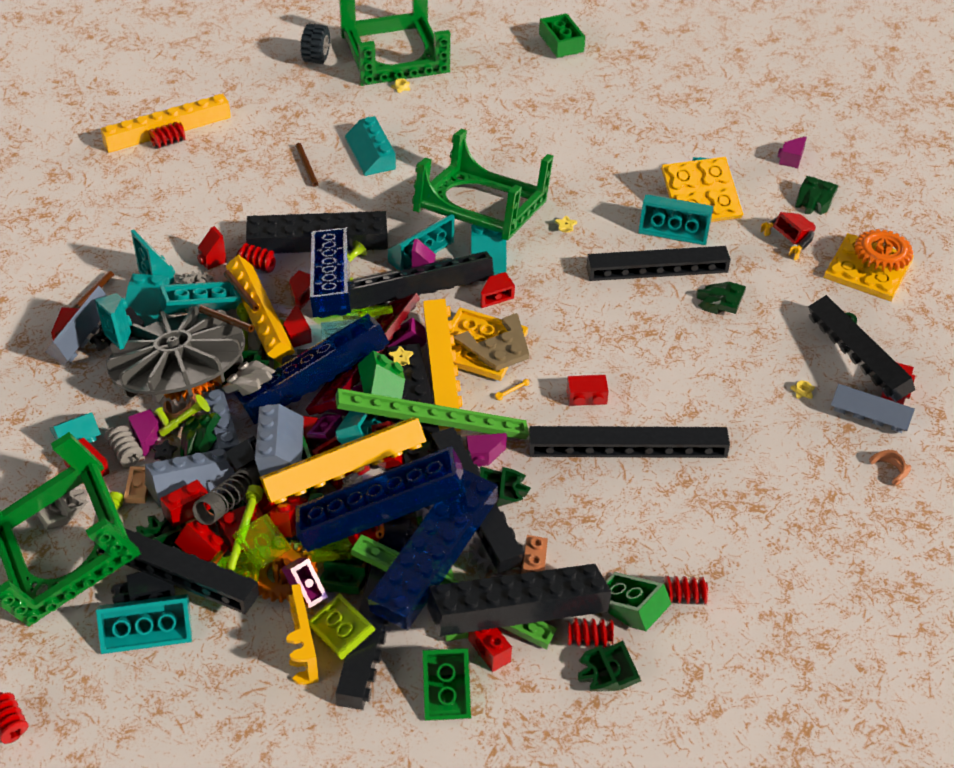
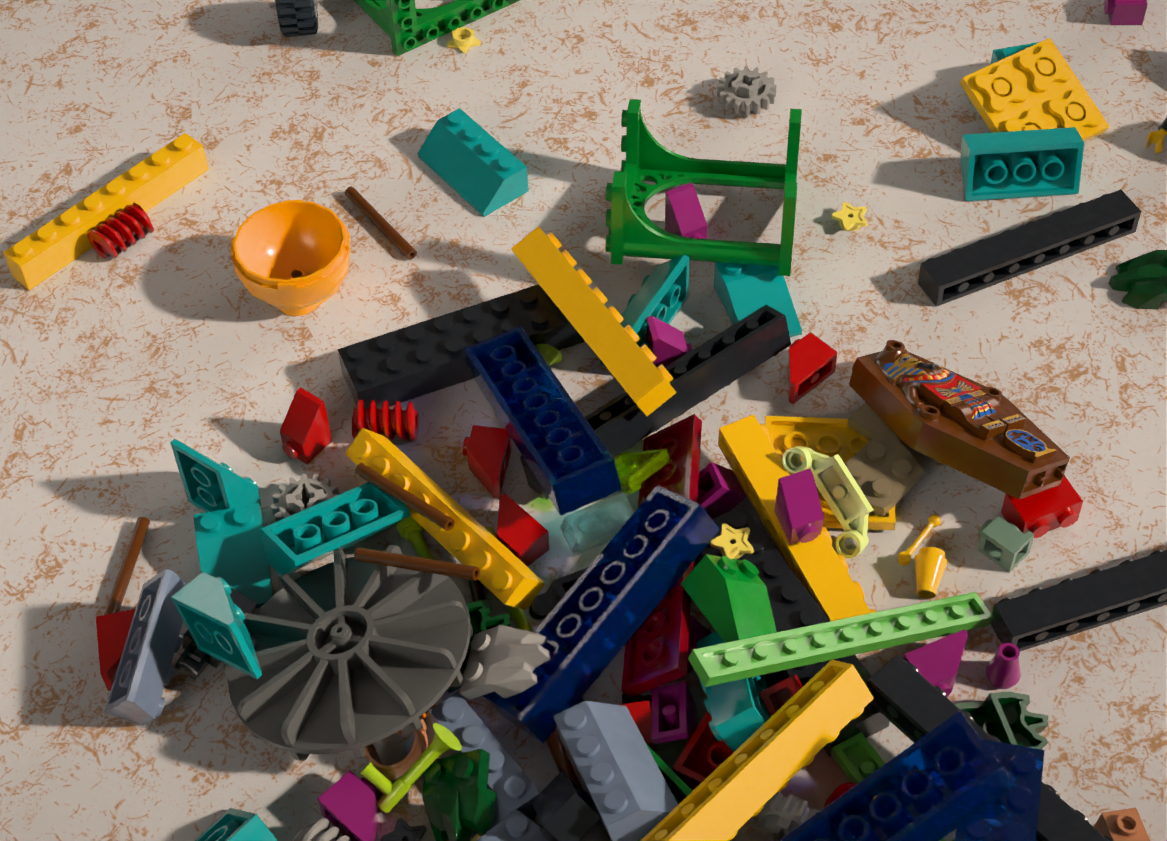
camera: 15 degrees left, 5 degrees up
(245, 165) = (292, 255): none -> light orange rock
(384, 233) = (594, 322): none -> yellow brick
(441, 345) = (799, 507): none -> magenta slope
(469, 195) = (684, 213): none -> magenta slope
(474, 351) = (840, 493): none -> yellowish green plate
(508, 402) = (929, 569): none -> yellow cone
(520, 458) = (1004, 667): none -> magenta cone
(542, 145) = (746, 90): none -> light grey gear
(556, 402) = (1004, 543): none -> sand green brick
(559, 333) = (958, 421): none -> reddish brown container

